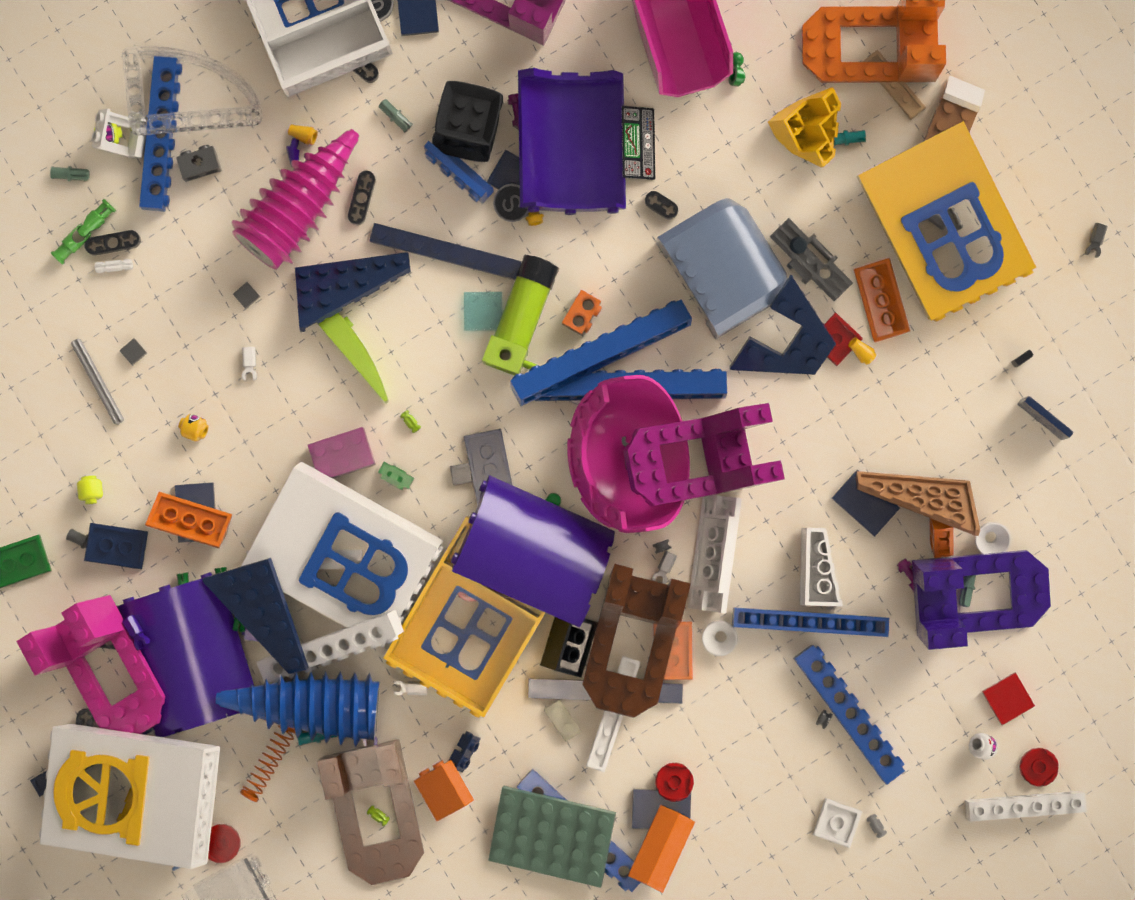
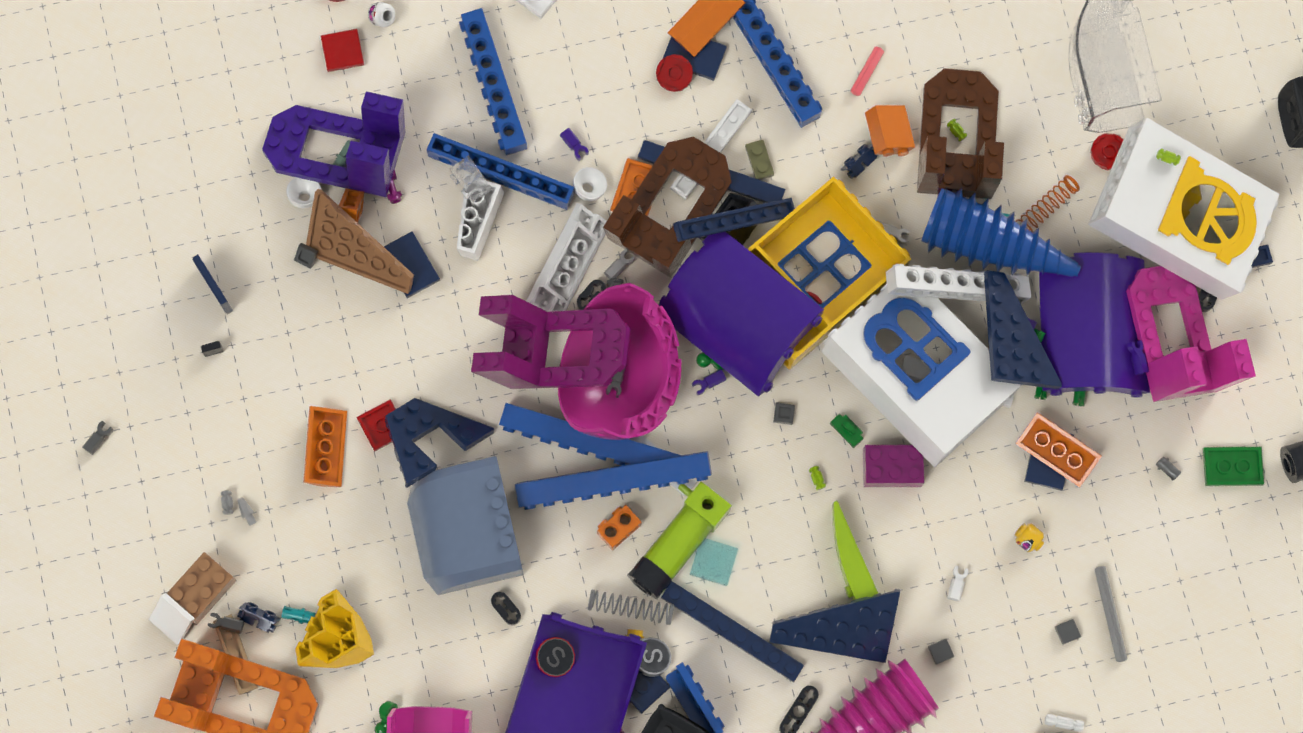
camera: 165 degrees left, 10 degrees down
(89, 489) = (1146, 510): neon yellow head -> none
(116, 546) = (1135, 449): dark blue tile -> none
(158, 834) = (1168, 157): none -> lime piece
(484, 849) = (867, 71): none -> coral axle
(487, 457) = (754, 417): tile -> none
(540, 482) = (710, 381): none -> dark purple bar
(552, 836) = (802, 58): sand green plate -> none
(566, 639) = (733, 219): none -> dark blue tile
(584, 242) = (668, 617): none -> light grey piece
(601, 173) = (555, 657): none -> black tile
(638, 142) = (507, 677): sticker -> none
(686, 530) = (588, 292): none -> black beam
(750, 677) = (573, 143): none -> dark purple bar
(806, 263) = (386, 504): dark grey piece -> none
(823, 719) = (518, 85): dark grey bush -> none
(836, 598) = (470, 179): none -> clear brick
(863, 351) = (361, 403): yellow cone -> none
(877, 124) = (266, 619): none -> dark blue hinge
(911, 107) = (227, 623): none -> dark grey bar
(927, 183) = (242, 535): yellow panel -> none
(967, 478) = (305, 255): none -> dark grey tile

